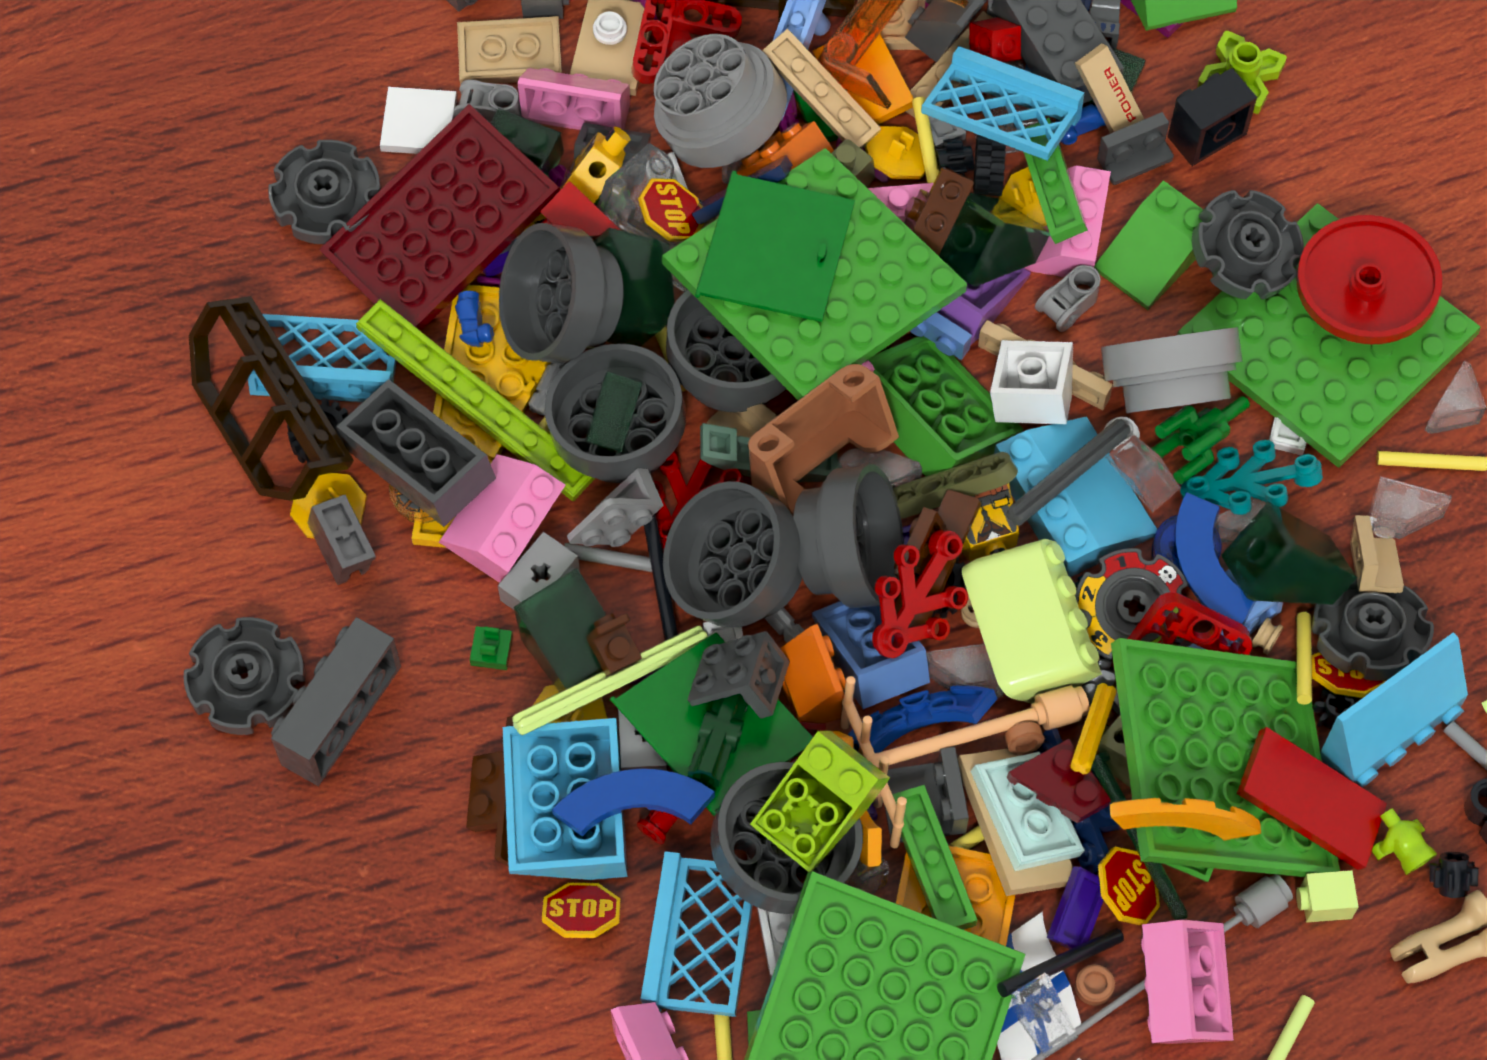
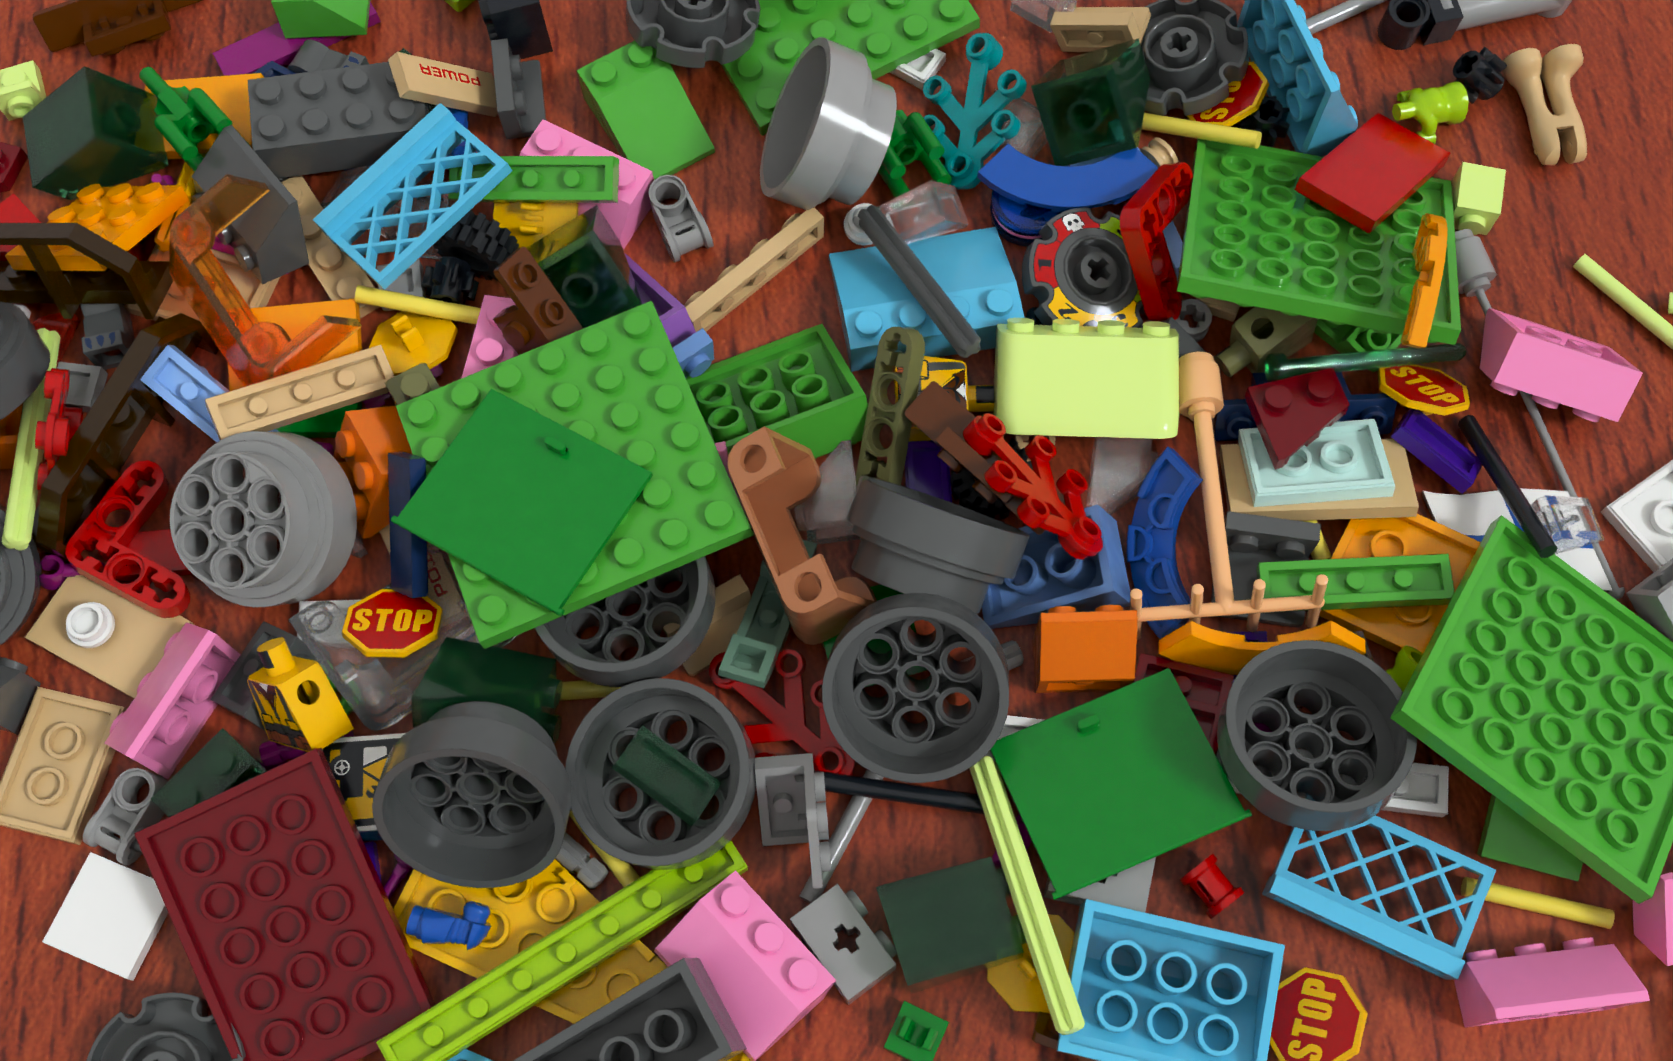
camera: 70 degrees left, 5 degrees up
(574, 209) = (363, 740): red slope -> none
(613, 644) = (989, 871): reddish brown bracket -> none
(633, 789) = (1198, 908): blue tile -> none
(718, 739) = (1146, 773): dark green piece -> none
(744, 667) = (1074, 730): dark grey bracket -> none
(819, 799) = (1297, 673): lime slope -> none
(996, 39) = (318, 180): red brick -> none
(1024, 738) = (1225, 437): nougat tile -> none
(1033, 382) = (782, 284): white slope -> none
(1093, 728) = (1246, 356): yellow axle -> none
(1094, 985) = (1523, 462): nougat tile -> none

